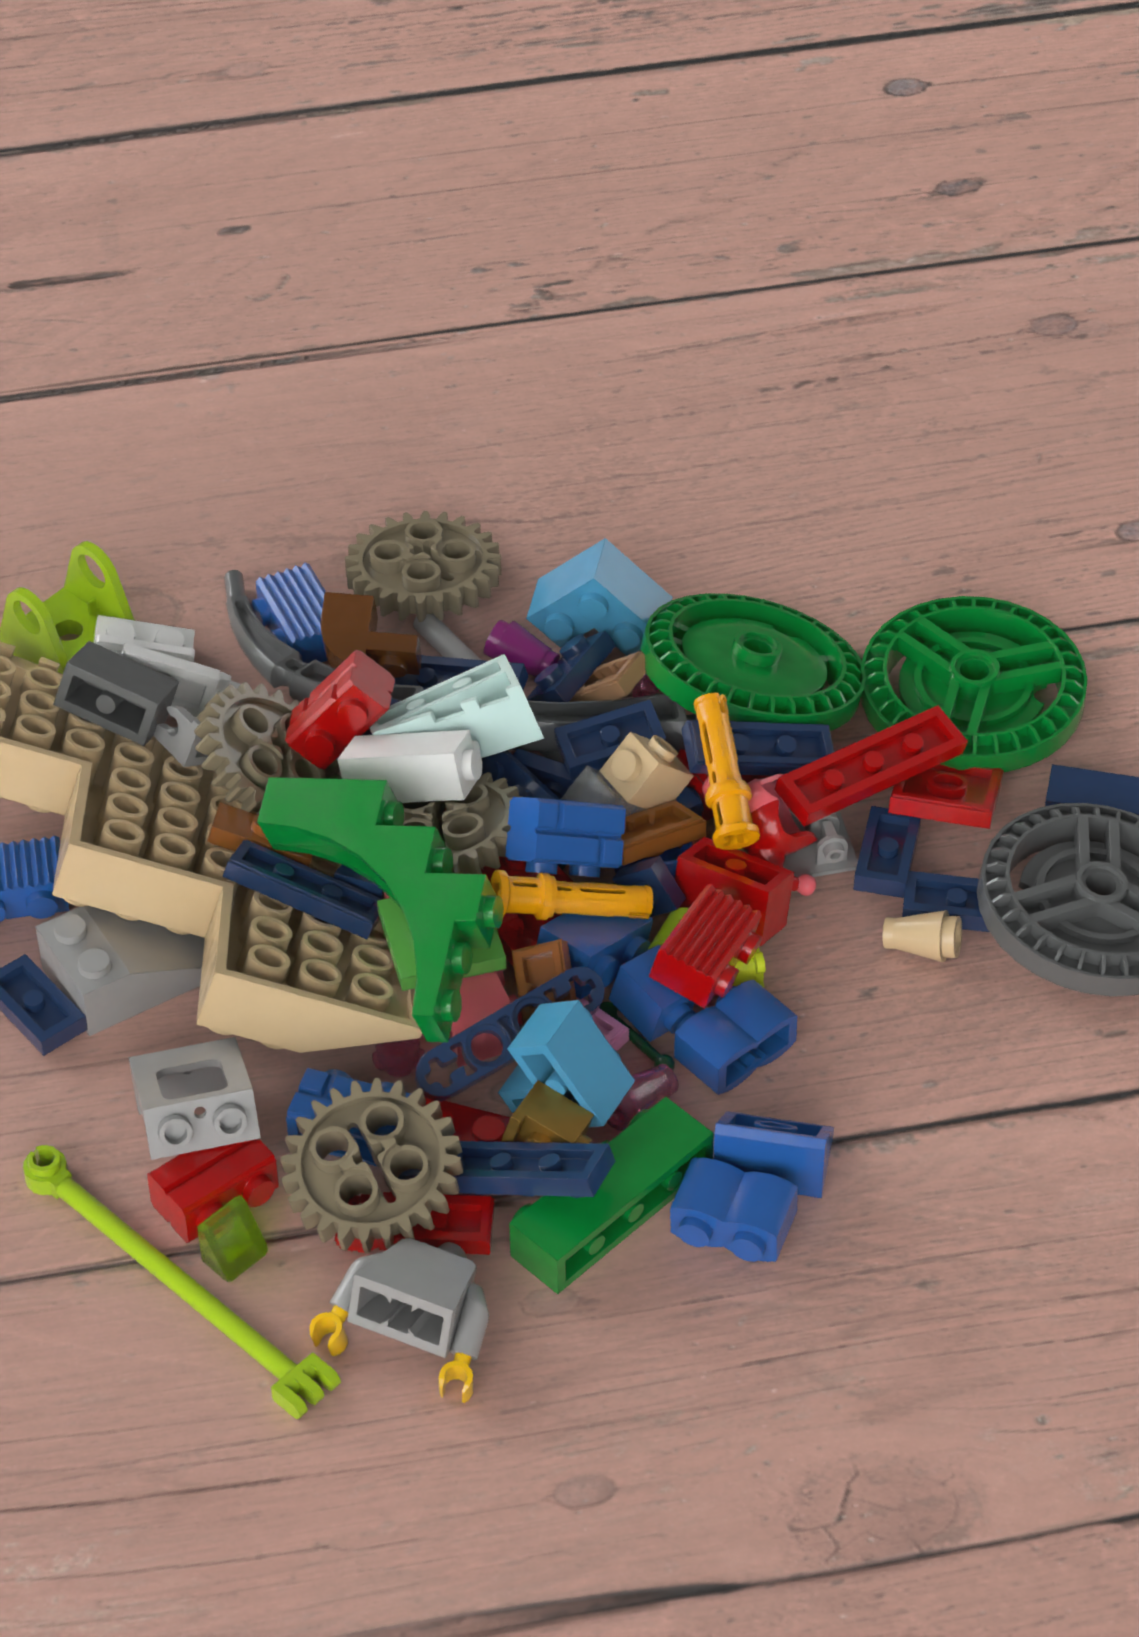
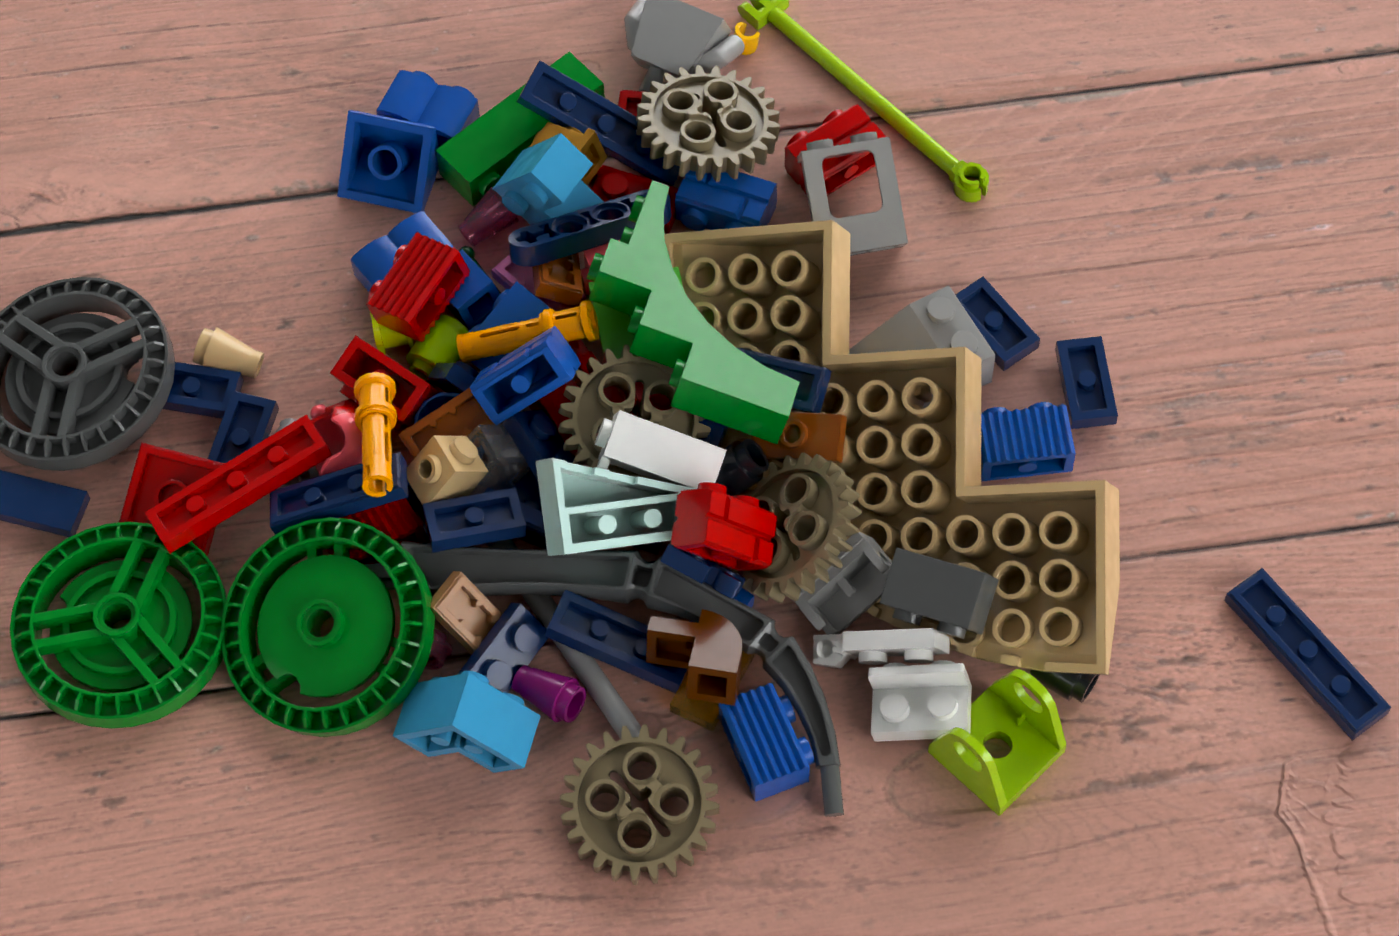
camera: 175 degrees left, 15 degrees up
(231, 1240) = (817, 111): clear neon green slope -> none

